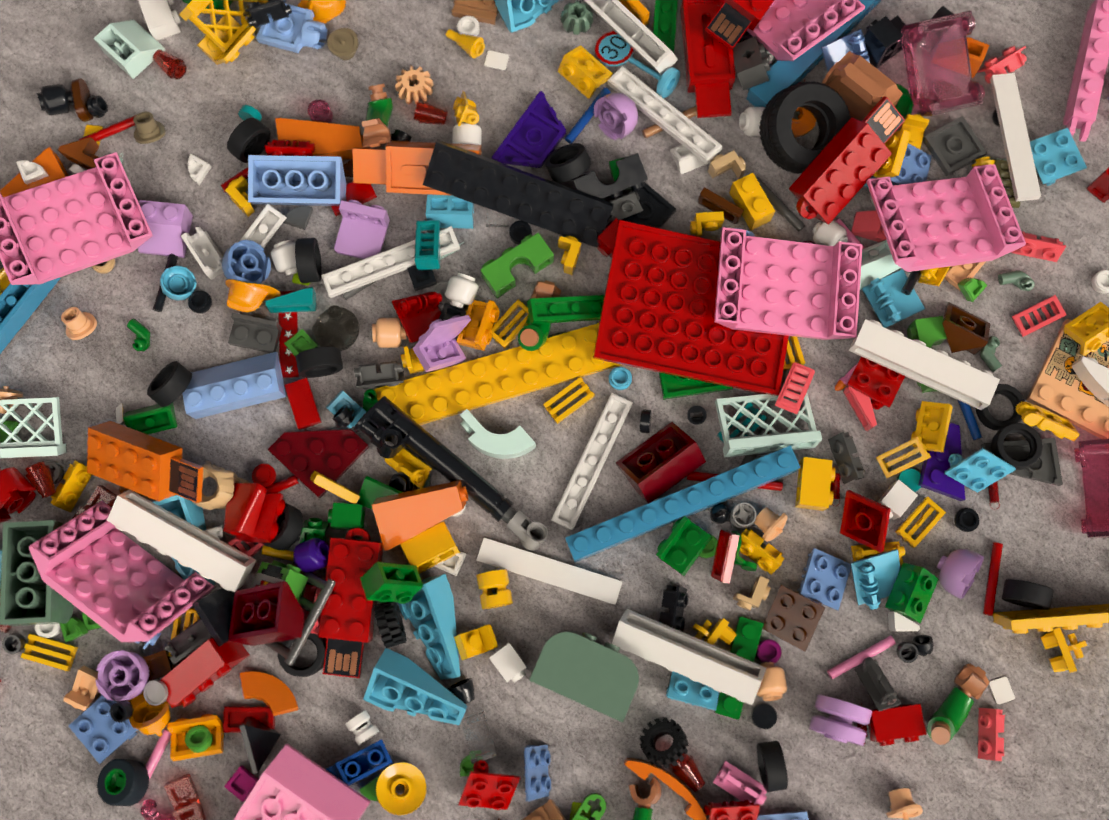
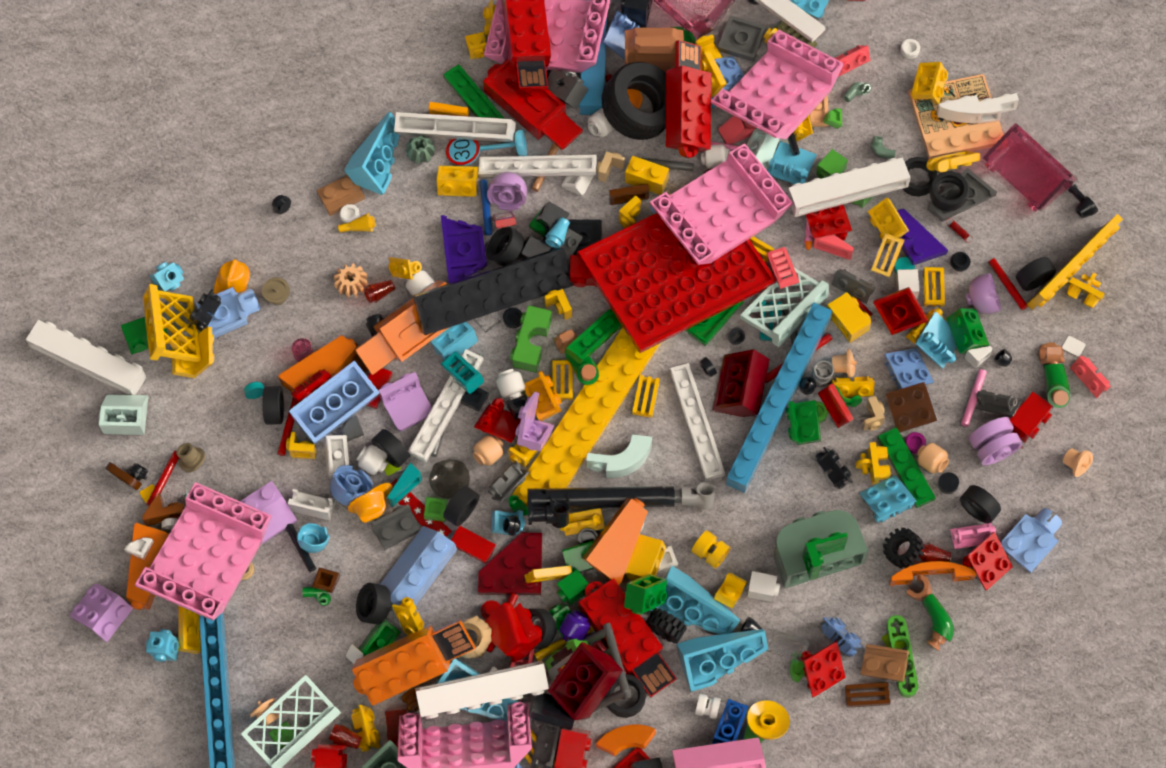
camera: 40 degrees left, 10 degrees down
(55, 99) = (103, 491): black head -> none
(78, 323) = (268, 622): light nougat piece -> none
(155, 329) = (326, 580): none -> reddish brown slope
(171, 65) = (164, 402): clear red cone -> none
(188, 421) = (408, 616): none -> yellow hinge
(197, 168) = (249, 456): white tile -> none
(200, 302) = (338, 539): black plate -> none
(377, 118) = (349, 320): nougat piece -> none
(496, 60) = (389, 220): white sticker -> none
(549, 571) = (734, 511): white tile -> none
(558, 693) = (818, 547): none -> green bracket
(588, 138) = (504, 219): none -> tile
(620, 188) = (557, 234): none -> medium azure cone
(620, 378) = (666, 355): medium azure plate -> none
(689, 656) = (871, 481): white brick -> none
(908, 656) = (1000, 373): black hinge -> none
(964, 330) = (854, 147): reddish brown slope -> none
(970, 420) = (906, 199): blue piece -> none
(978, 469) = (939, 223): medium azure hinge -> none
(1055, 306) = (894, 88): coral slope -> none

